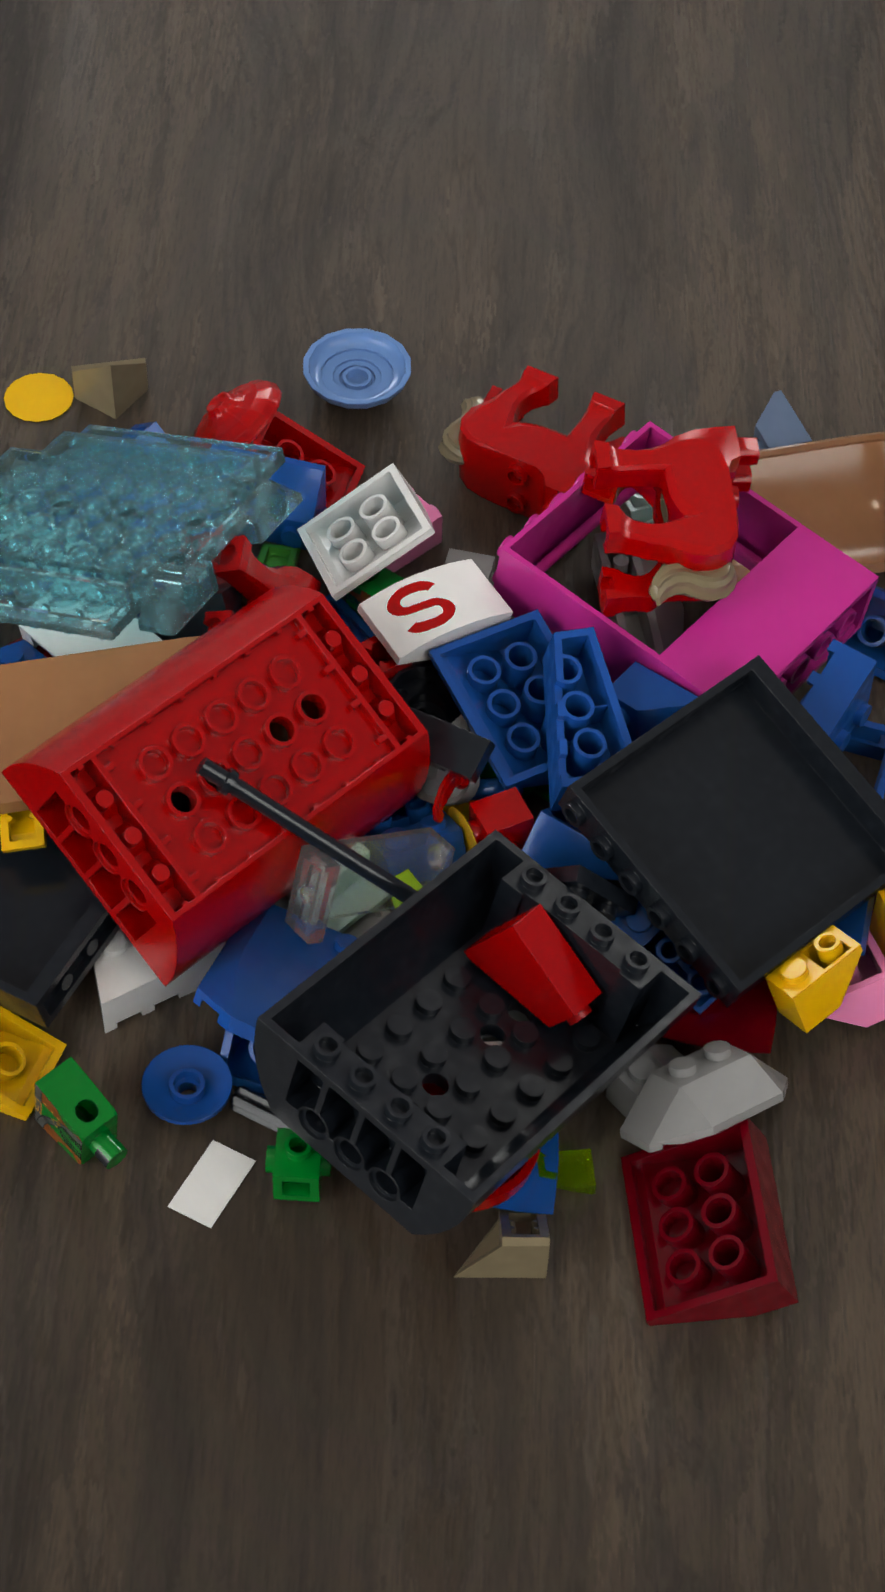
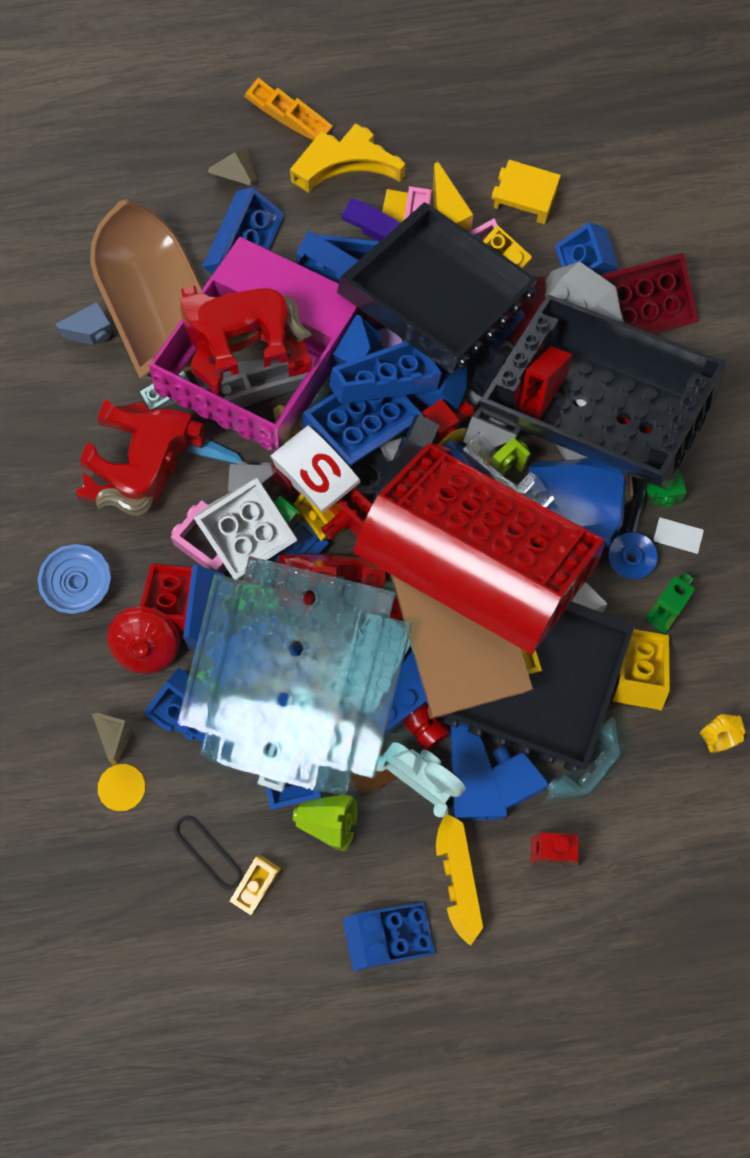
camera: 100 degrees left, 20 degrees up
(229, 782) = (522, 517): black bar -> none
(818, 1151) = (590, 247): none -> blue slope

